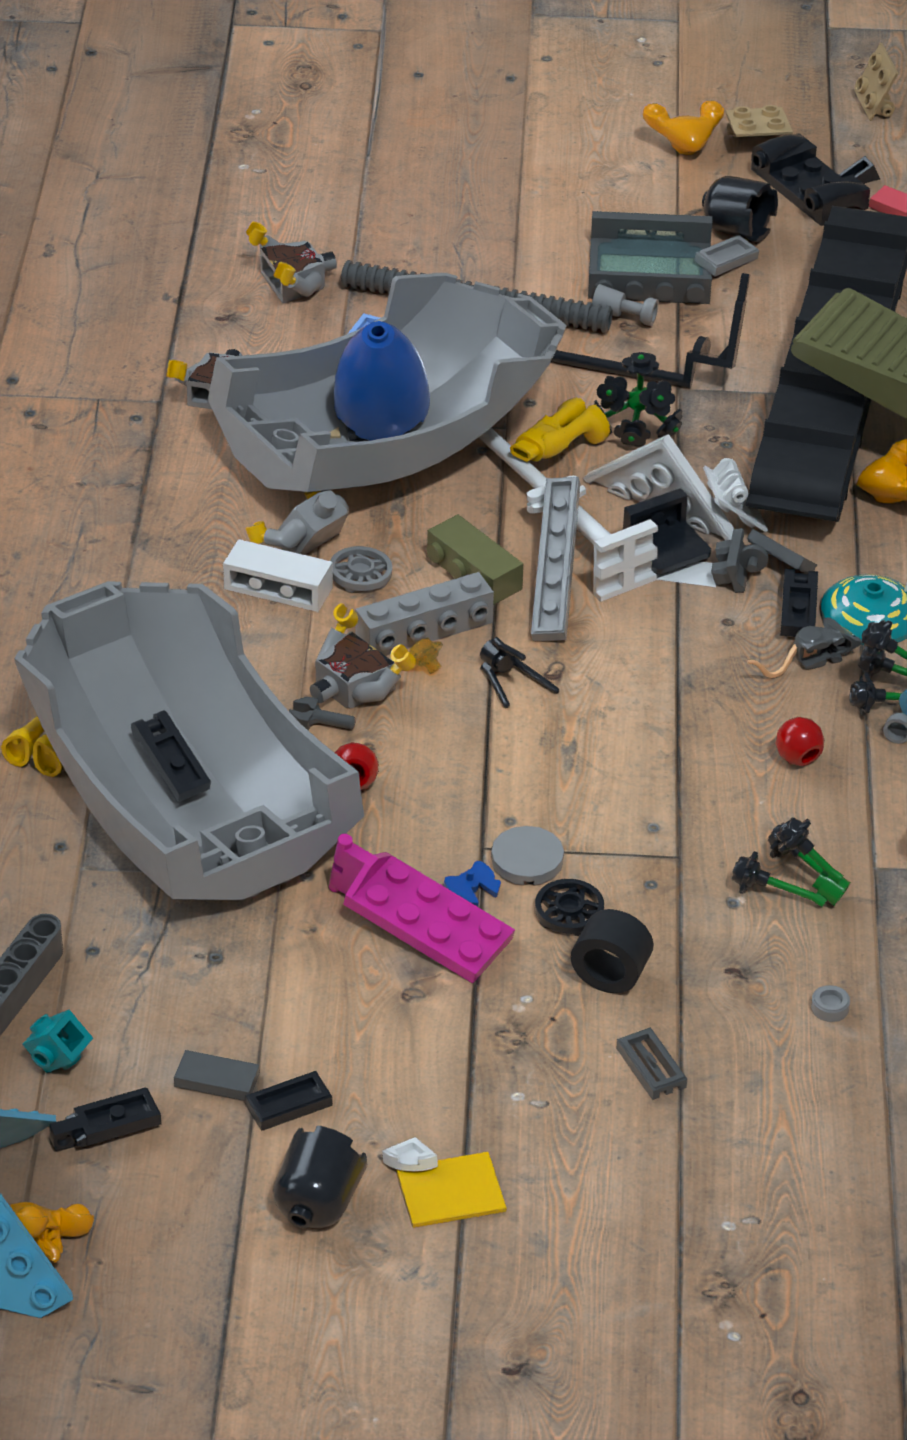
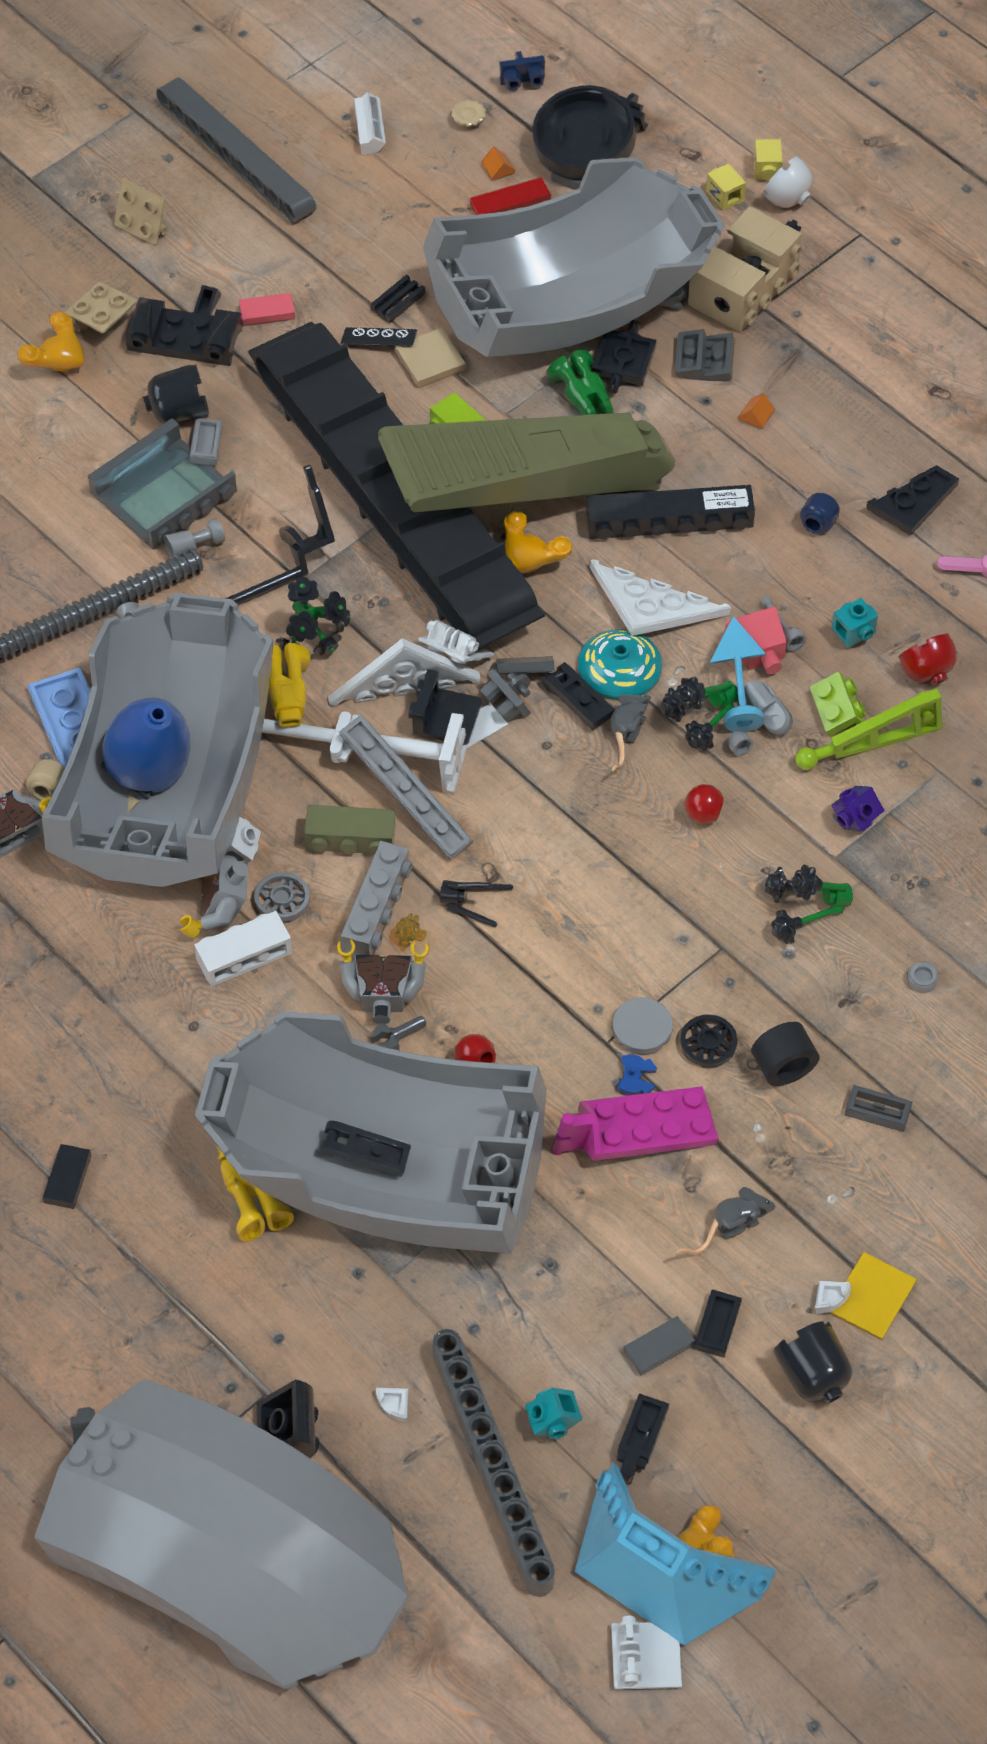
camera: 45 degrees left, 15 degrees up
(372, 505) = (244, 841): none -> white brick
(406, 1035) = (734, 1215): none -> dark grey animal

